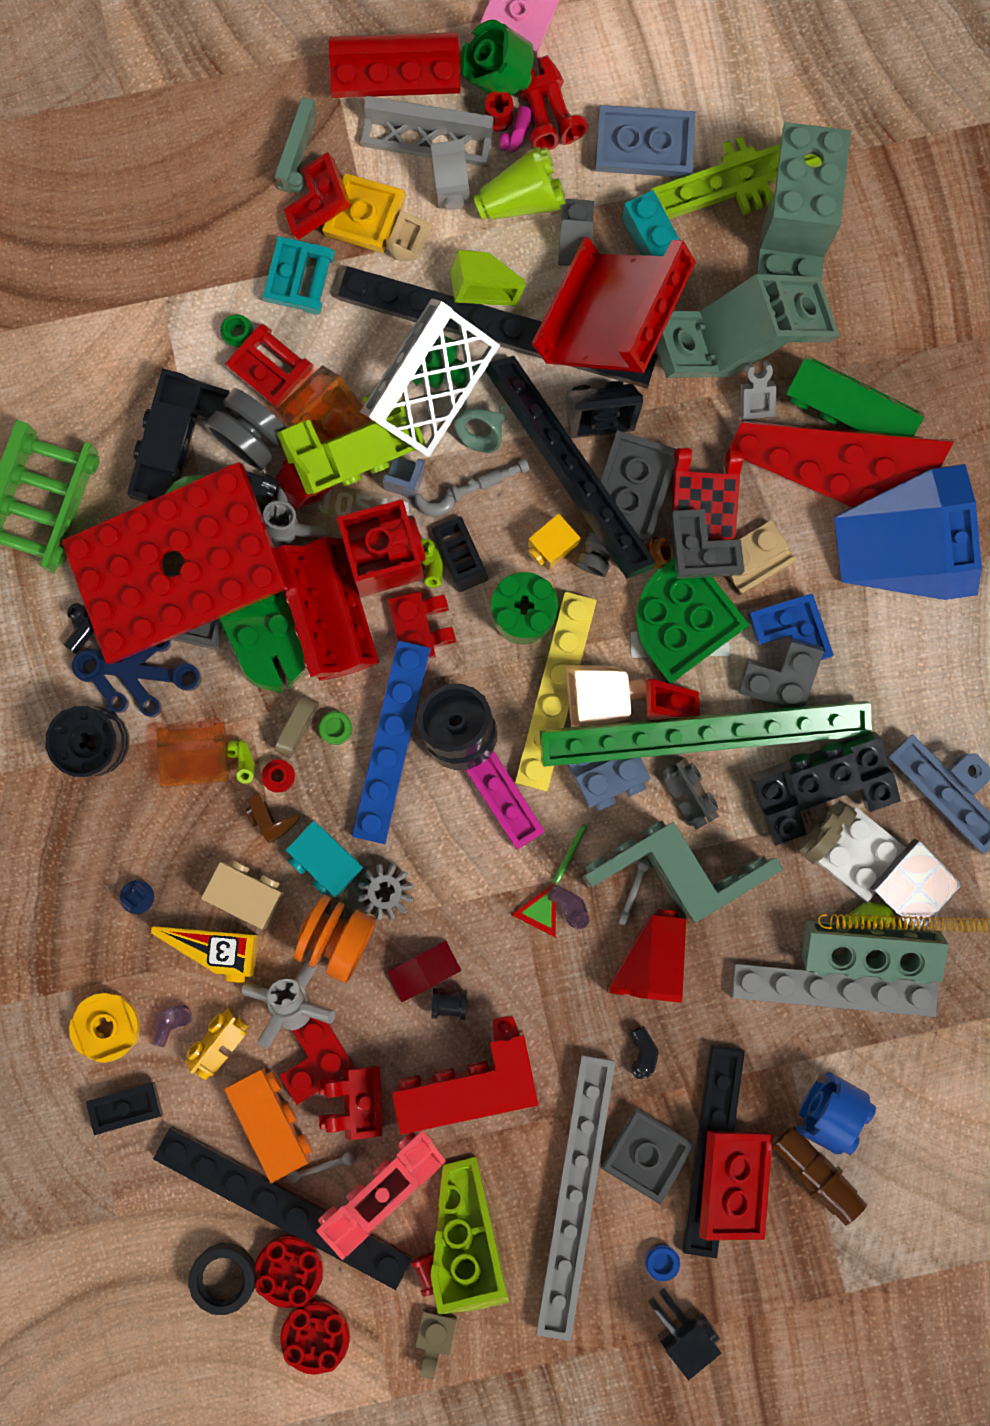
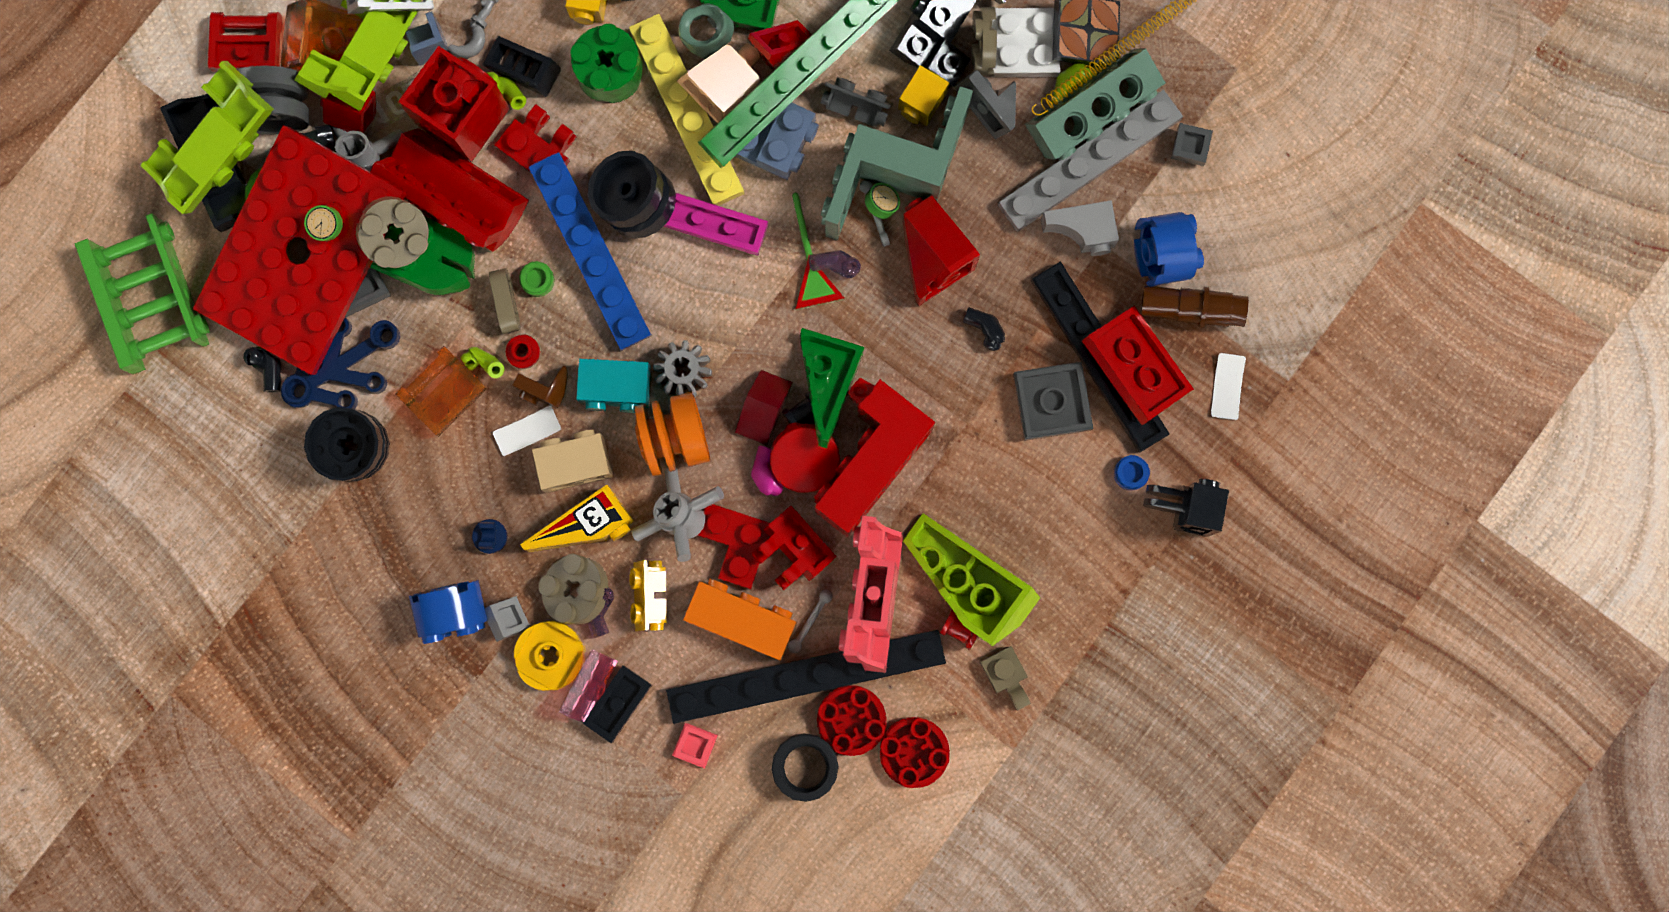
camera: 35 degrees left, 0 degrees up
(57, 932) = (448, 609): none -> blue brick
(96, 972) = (506, 618): none -> light grey plate
(113, 1076) = (588, 686): none -> clear pink plate
(149, 983) = (556, 589): none -> dark tan plate
(156, 1188) = (695, 745): none -> coral tile
(175, 436) = (214, 145): none -> lime bracket
(206, 562) = (323, 223): none -> tile
(230, 324) = (187, 31): green plate -> none
(231, 838) = (527, 431): none -> white sticker
(249, 630) = (410, 242): none -> dark tan plate
(379, 1023) = (763, 475): none -> dark pink arm
(420, 1040) = (799, 460): none -> red tile
(494, 990) = (829, 373): none -> green wing
(575, 1198) = (1024, 477): light grey plate -> none
(632, 656) = (723, 32): none -> sand green piece
(646, 888) = (882, 200): none -> tile
(744, 833) = (922, 96): none -> yellow brick
(789, 1043) = (1088, 225): none -> light grey arch
(792, 888) = (993, 109): none -> dark grey slope
(793, 1258) = (1227, 386): none -> white sticker
(923, 1044) = (1191, 144): none -> dark grey plate

